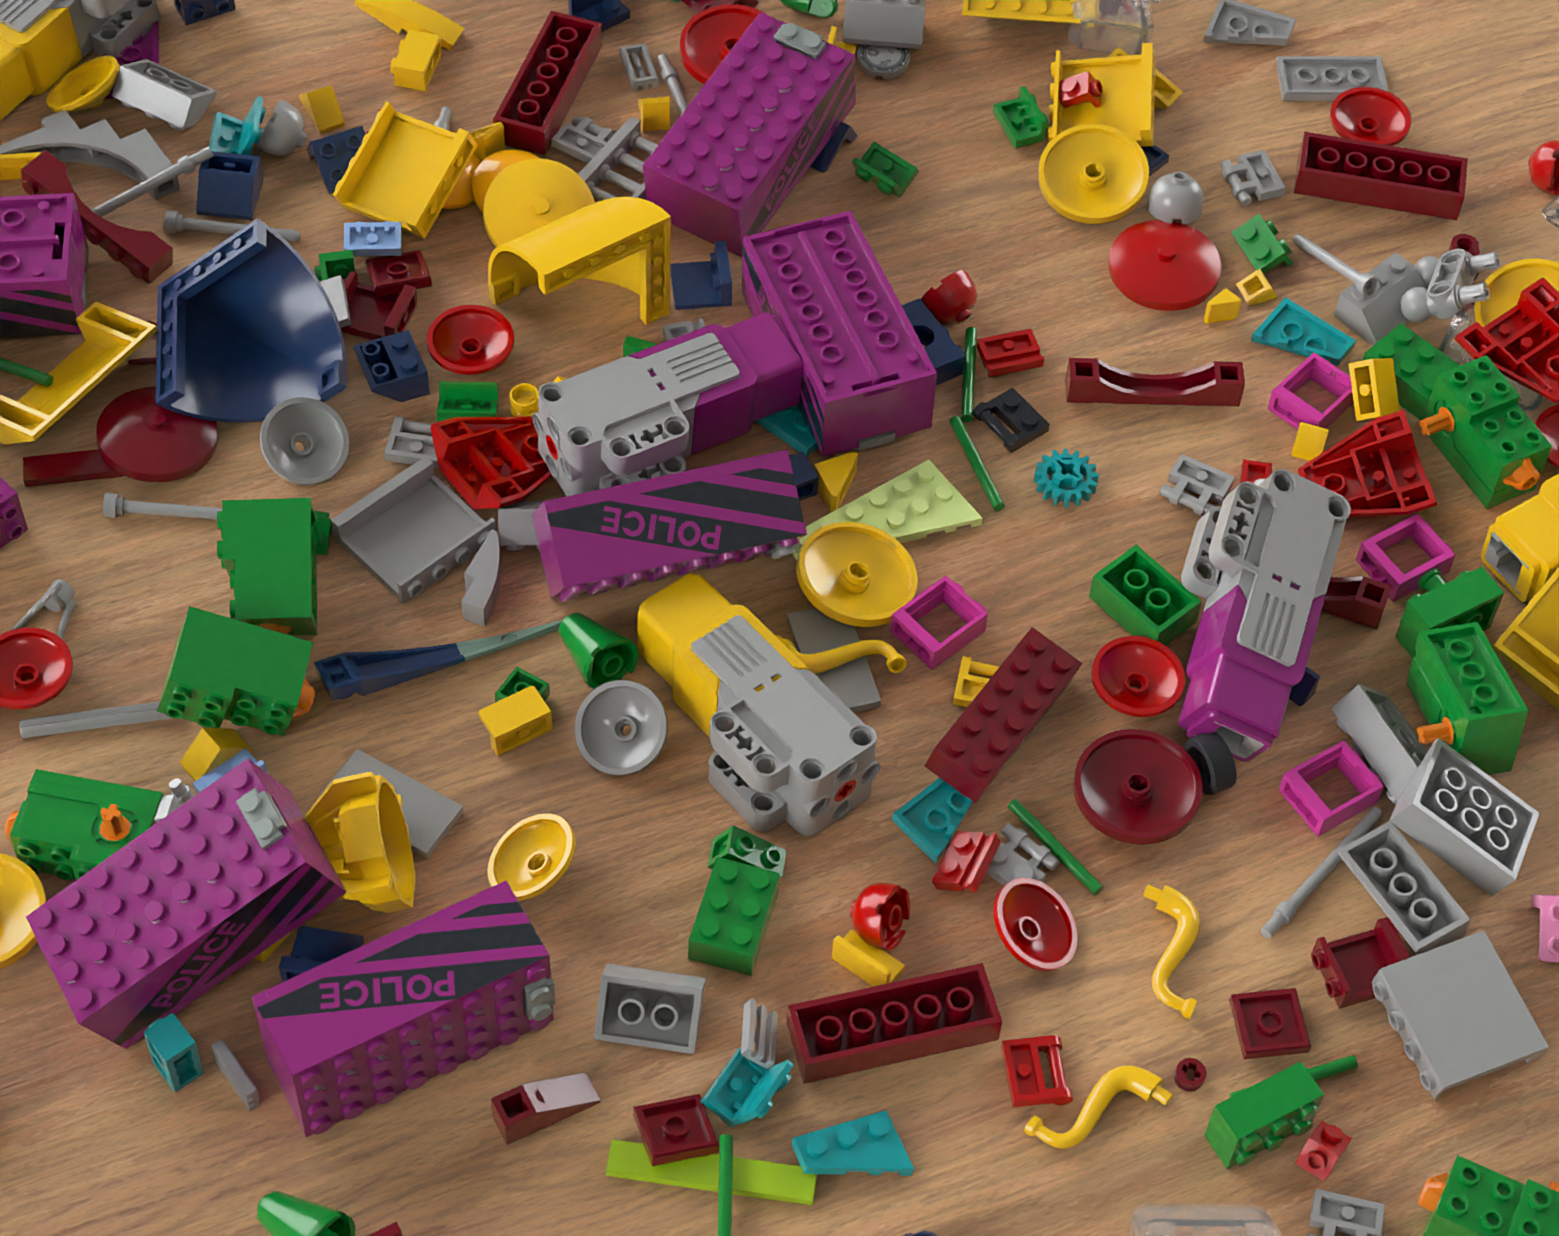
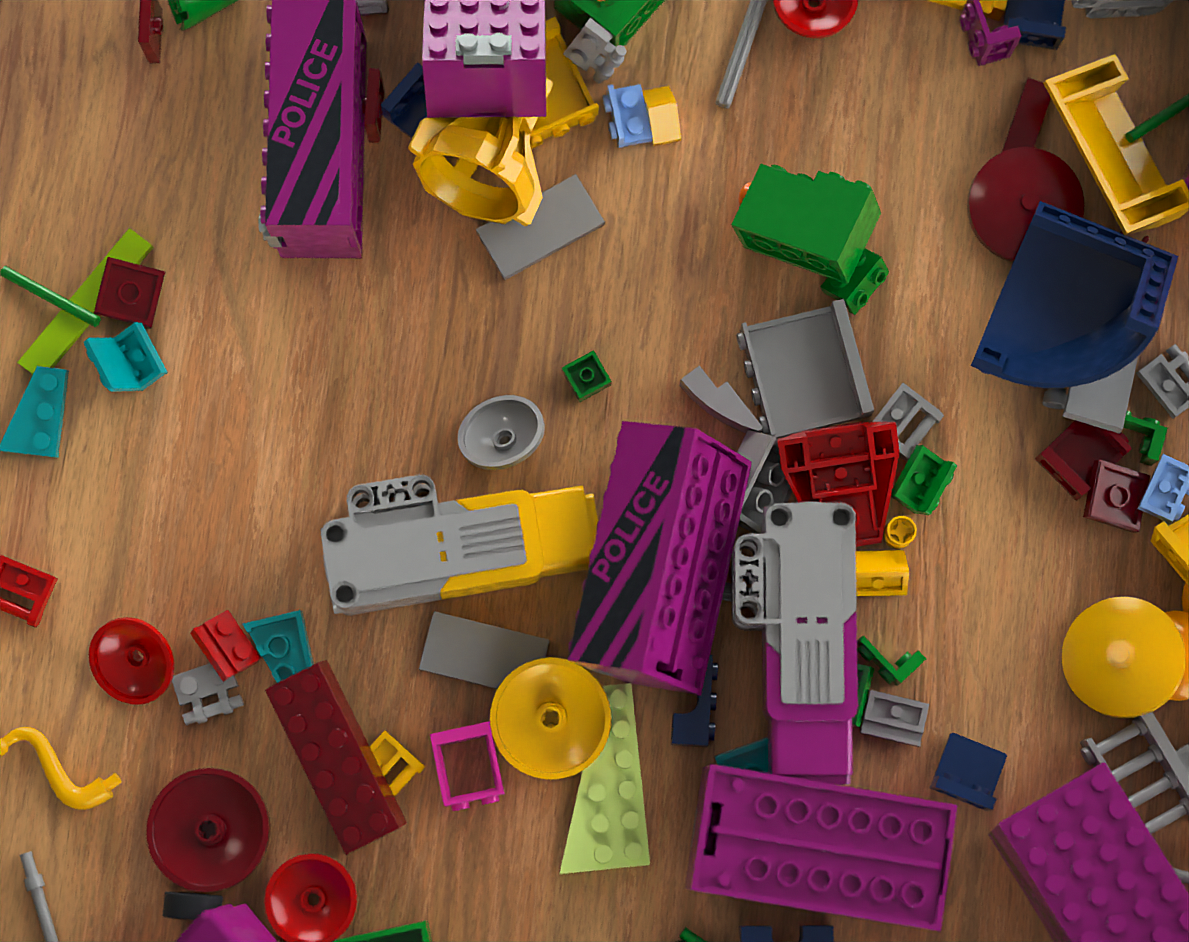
camera: 120 degrees right, 25 degrees up
(56, 598) = (885, 53): light grey plant -> none
(115, 505) = (961, 140): light grey piece -> none
(236, 675) = (710, 145): green piece -> none
(316, 428) = (928, 315): light grey dish -> none
(379, 670) = (671, 269): dark blue plate -> none
(393, 367) = (998, 433): dark blue slope -> none
(470, 339) = (1010, 504): red dish -> none
(516, 719) = (562, 355): yellow panel -> none
(533, 855) = (418, 300): yellow dish -> none
(541, 1104) = (204, 206): dark red slope -> none
(597, 650) = (585, 453): green cone -> none
(607, 241) = (1011, 631): yellow panel -> none
(649, 1008) = (242, 328): light grey slope -> none
(733, 916) = (281, 431): green brick -> none
(747, 849) = (332, 474): green bracket -> none
(764, 1036) = (166, 398): light grey tile -> none
(835, 478) = (669, 762): yellow slope -> none
(839, 656) = (492, 613): yellow animal -> none
(866, 961) = (187, 516): yellow panel -> none
(880, 913) = (214, 543): red cylinder -> none
(893, 1022) = (115, 499): dark red brick -> none
(977, 463) = (626, 909): green bar -> none
(1056, 847) = (203, 732): green bar -> none

